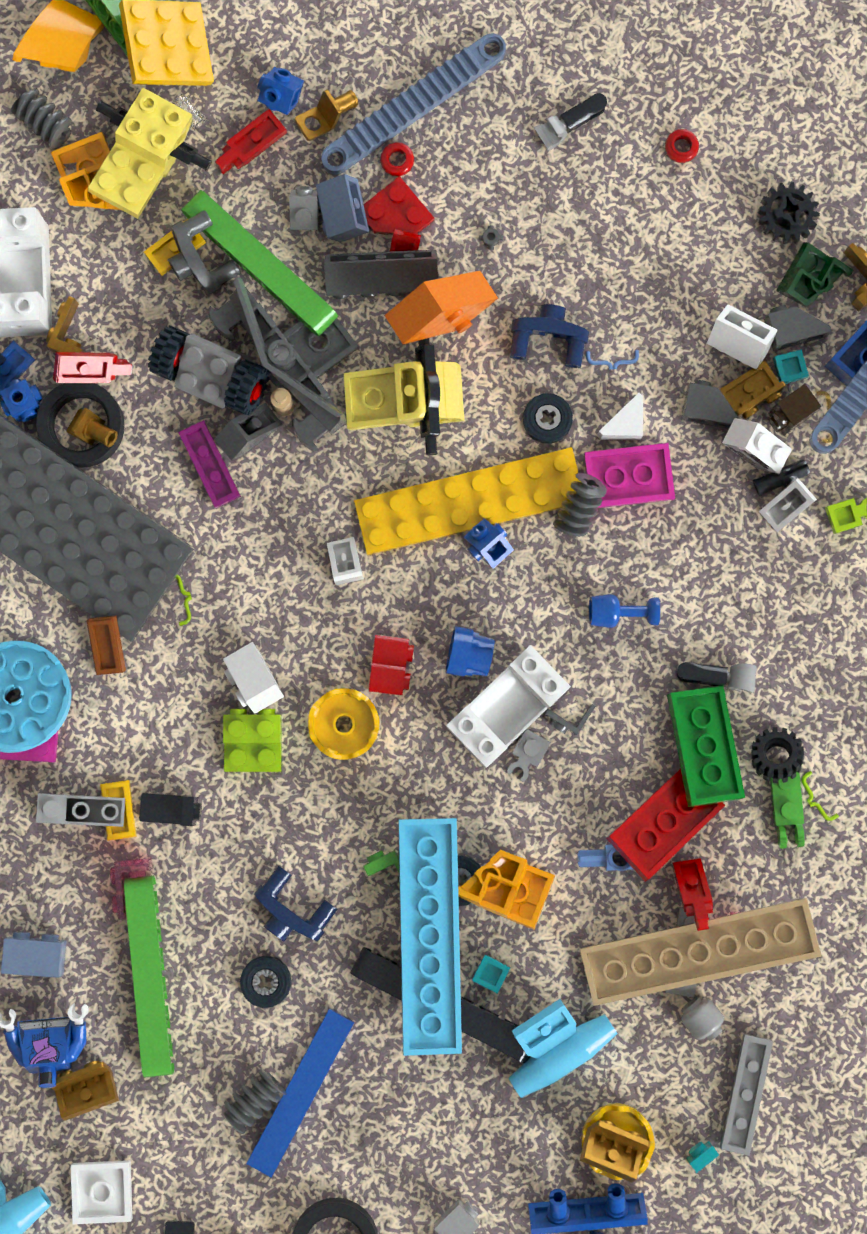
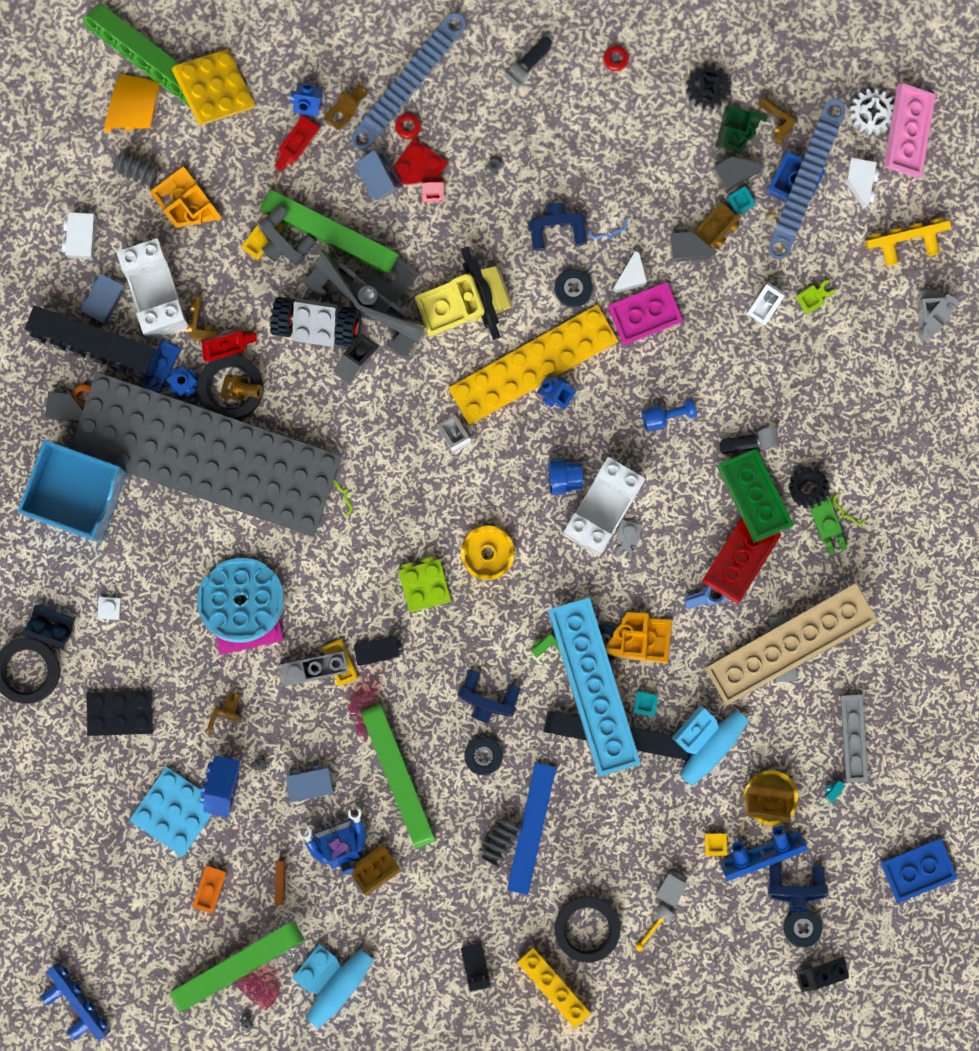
camera: 20 degrees left, 0 degrees up
(101, 1192) = (407, 940): white plate -> none
(106, 645) = (297, 544): dark orange tile -> none
(144, 151) = (219, 173): light yellow piece -> none
(185, 103) = (243, 133): clear pin -> none
(209, 464) = (334, 390): magenta plate -> none
(252, 677) = (412, 538): white brick -> none
(282, 402) = (375, 330): tan cylinder -> none
(303, 208) = (349, 182): light grey bracket -> none
(378, 272) = (421, 215): dark grey brick -> none
(389, 665) = (508, 501): red brick -> none
(441, 307) = (474, 229): orange brick -> none
(530, 1181) = (715, 844): none -> yellow plate
(563, 725) = (647, 509): dark grey bracket -> none
(582, 505) = (616, 346): dark grey piece -> none
(694, 891) = (775, 602): red hinge -> none
(702, 1018) = (807, 693): light grey head -> none
(741, 336) = (699, 189): white brick -> none
(757, 445) = (732, 266): white brick -> none
(787, 475) = (756, 284): black axle -> none
(793, 410) = (751, 233): dark brown piece -> none

